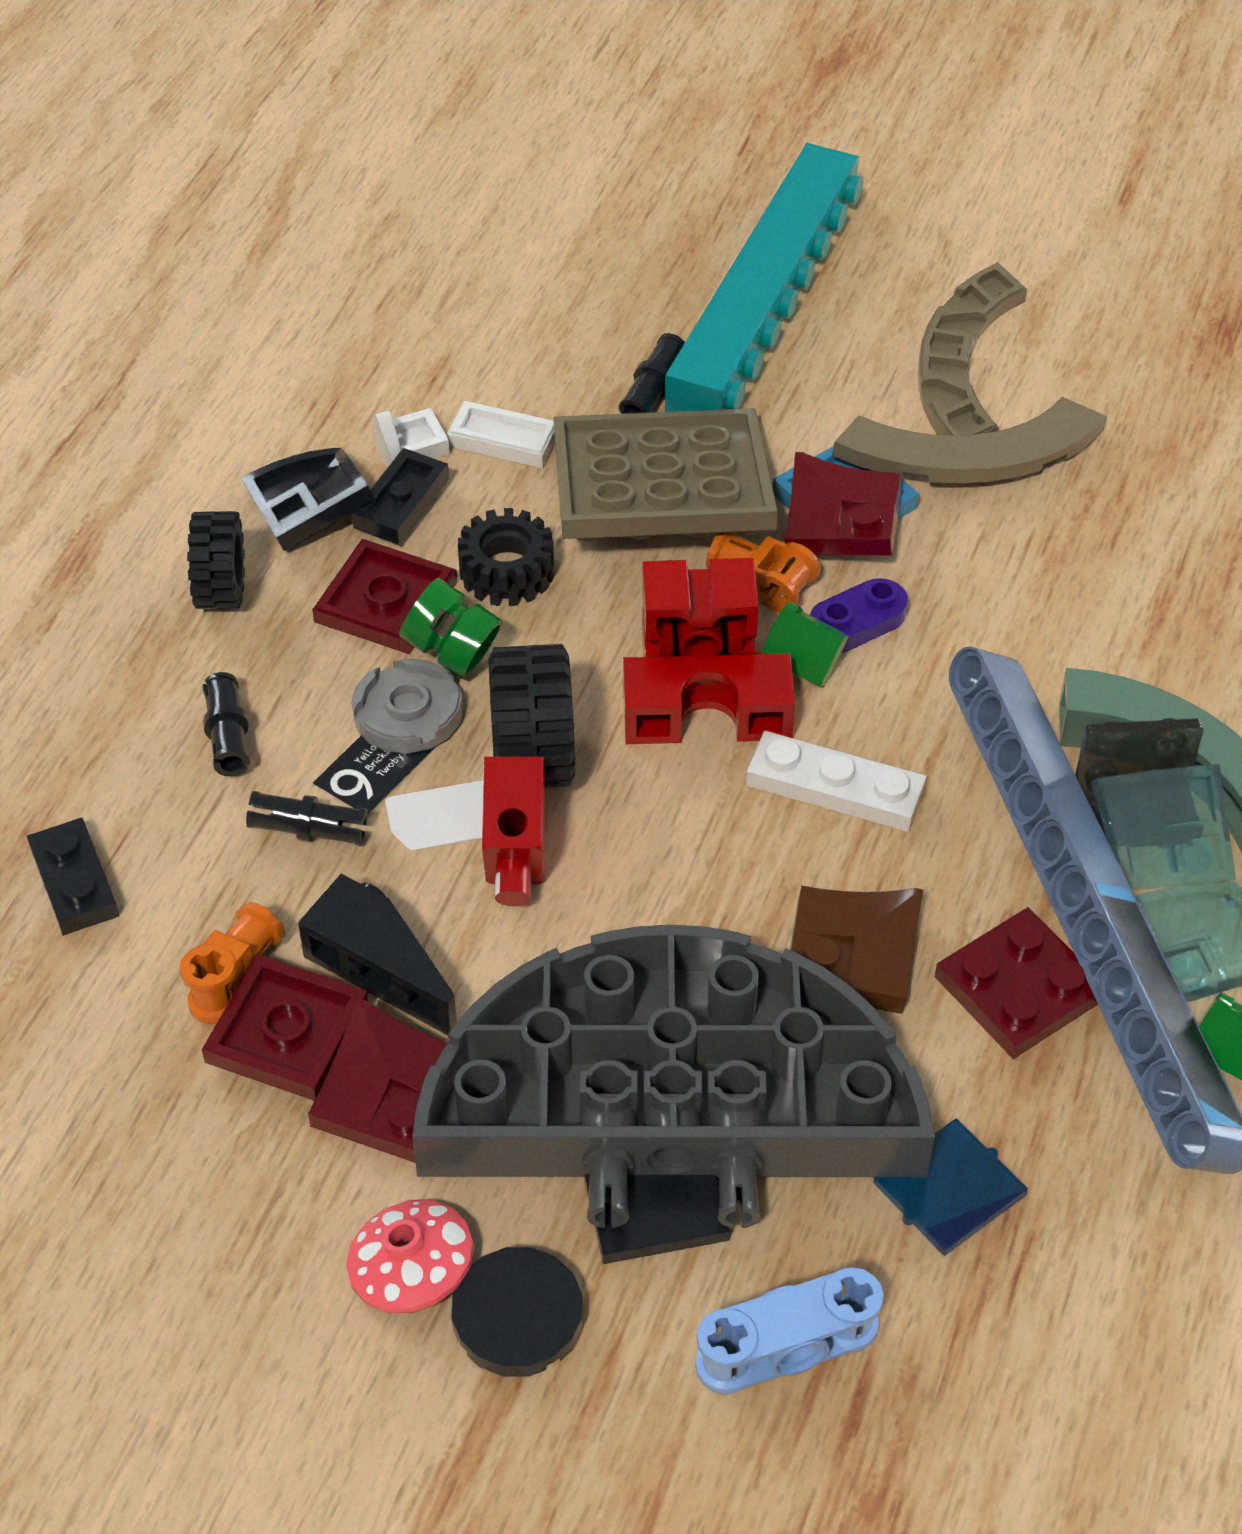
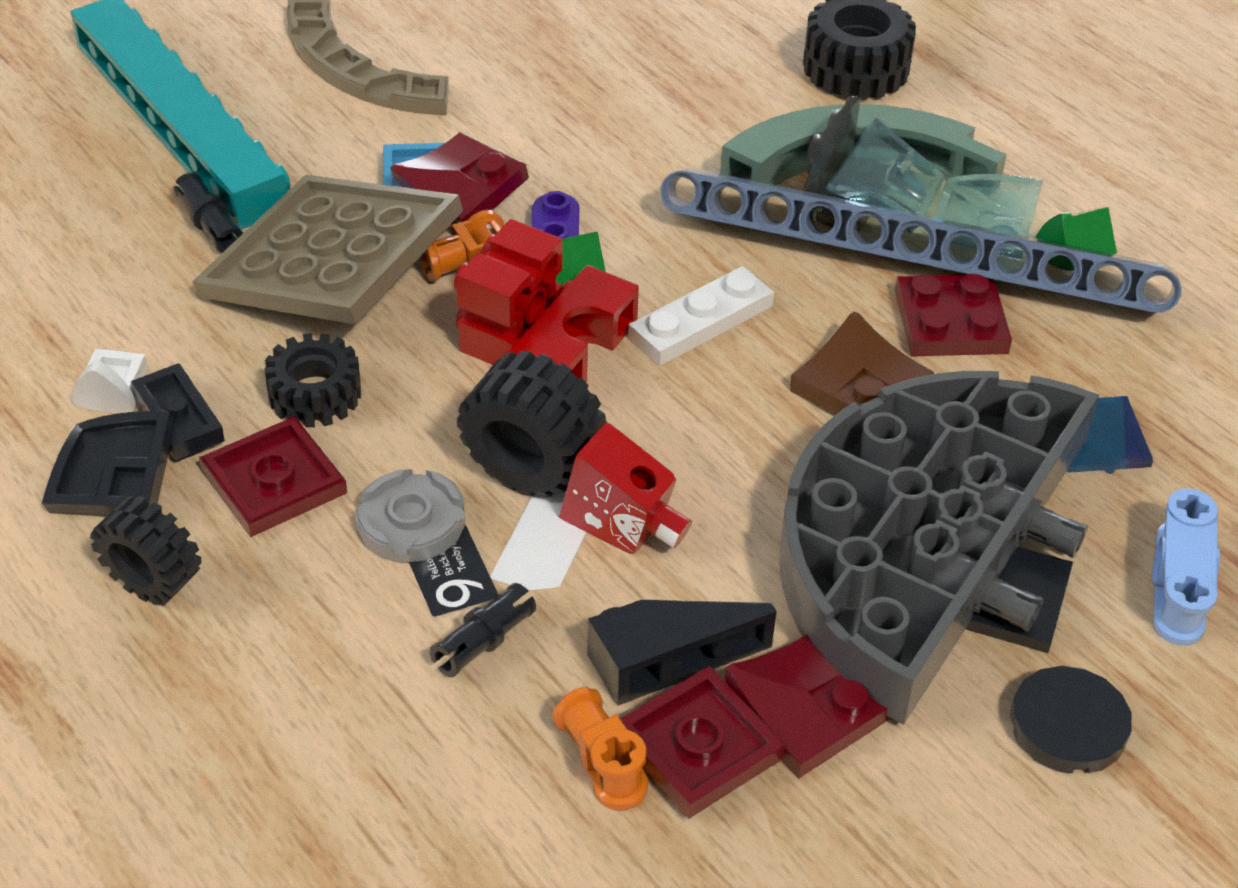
camera: 60 degrees left, 5 degrees down
(72, 876) = (400, 829): black plate -> none
(225, 724) = (327, 638): black pin -> none
(413, 1274) = (985, 784): coral dish -> none
(466, 638) = (374, 438): green wheel -> none
(502, 434) = (167, 323): white tile -> none
(972, 458) = (464, 104): dark tan tile -> none

